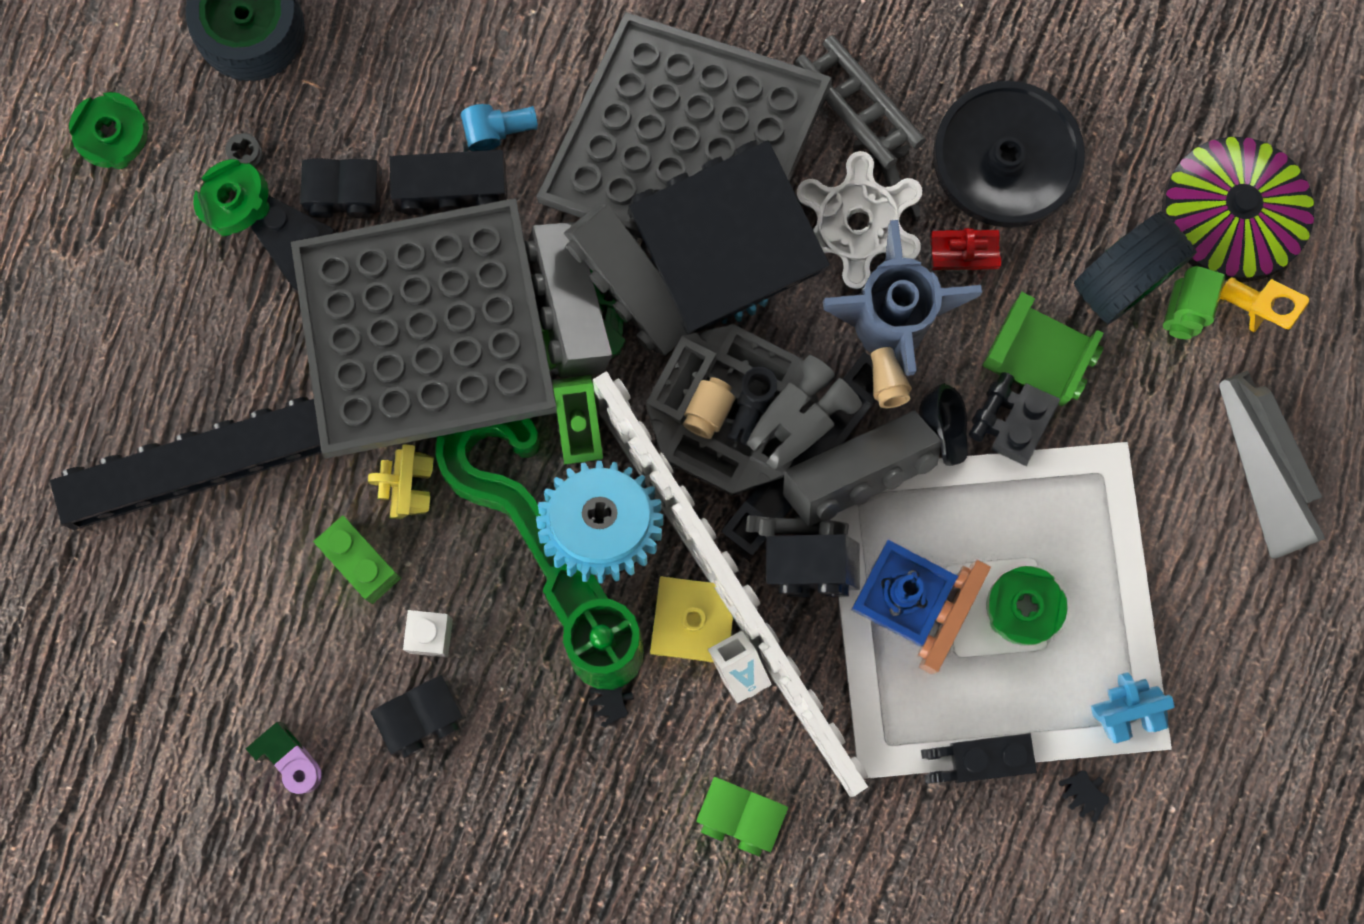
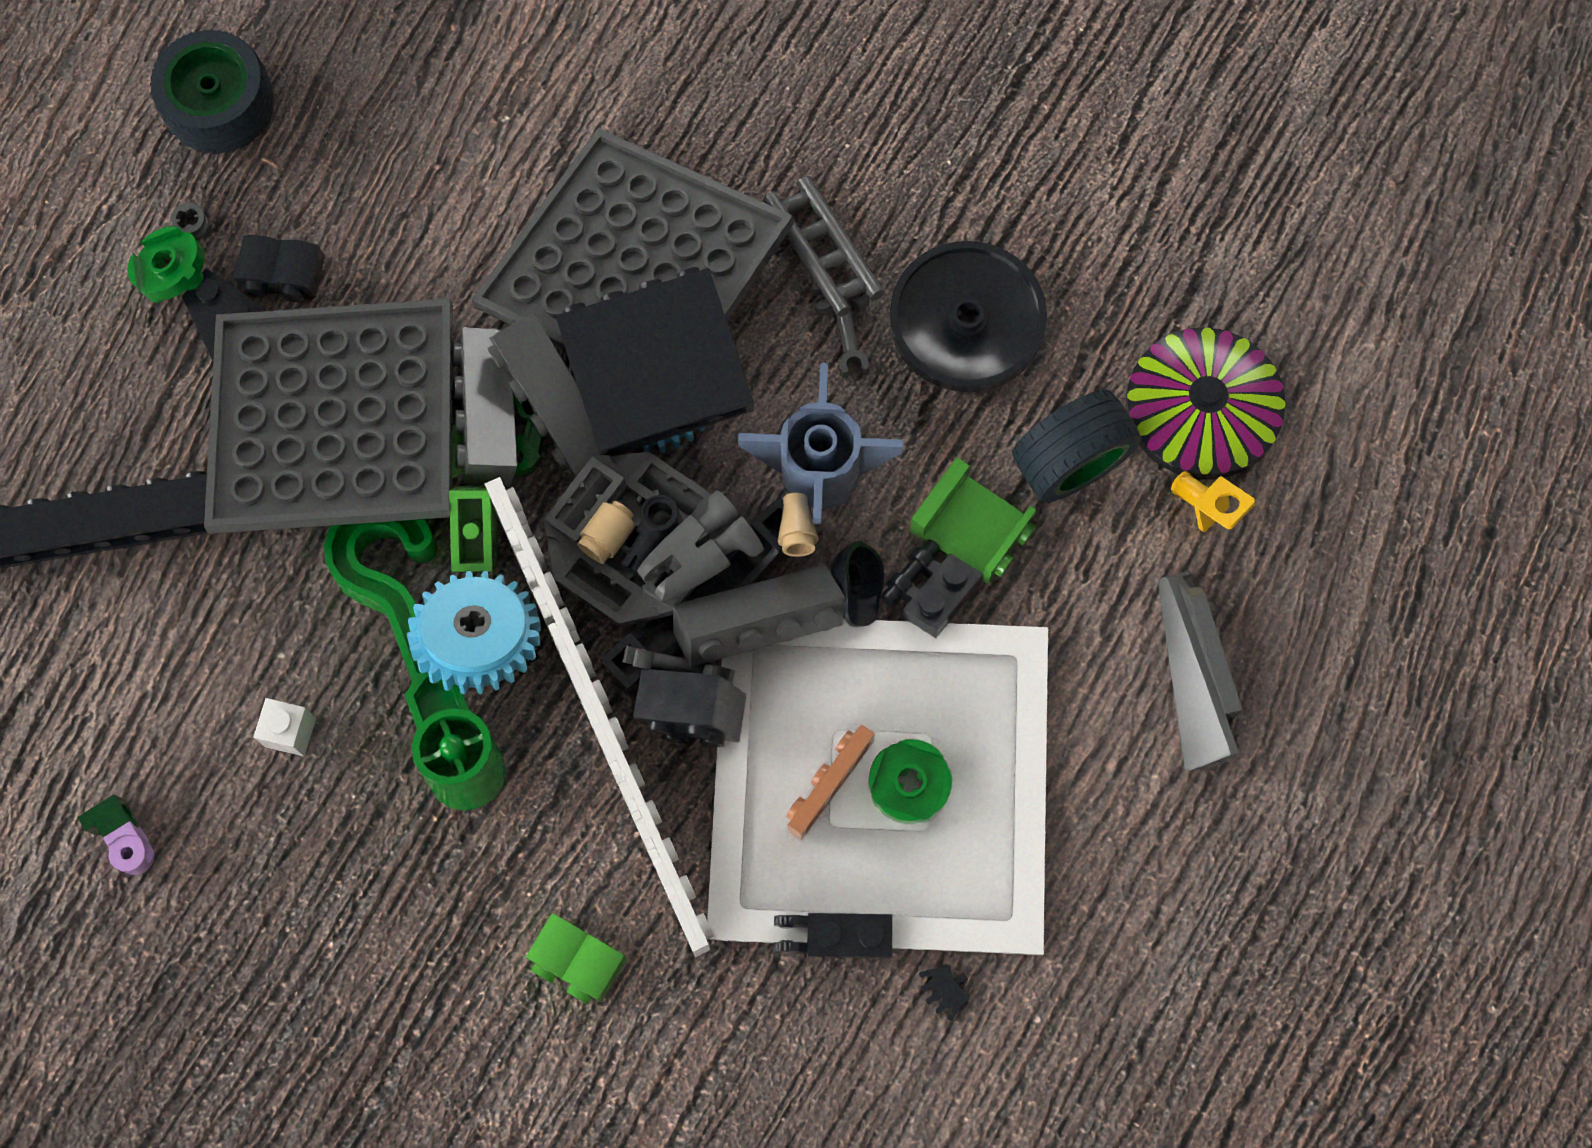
camera: 15 degrees right, 5 degrees down
(117, 149) = (67, 202): green plate -> none
(357, 560) = (226, 642): bright green brick -> none
(406, 465) = (298, 554): light yellow hips -> none
(418, 716) = (261, 809): black brick -> none
(447, 180) = (386, 273): black brick -> none
(487, 127) = (438, 226): dark azure pin -> none
(613, 704) = (464, 826): black piece -> none
(689, 619) = (559, 753): light yellow plate -> none
(739, 666) = (598, 804): white brick -> none
(863, 195) = (806, 339): white plate -> none
(930, 585) = (779, 720): blue plate -> none
(965, 249) = (907, 408): red hips -> none
(1131, 702) = (1023, 901): dark azure hips -> none
(1193, 302) = (1136, 490): bright green brick -> none

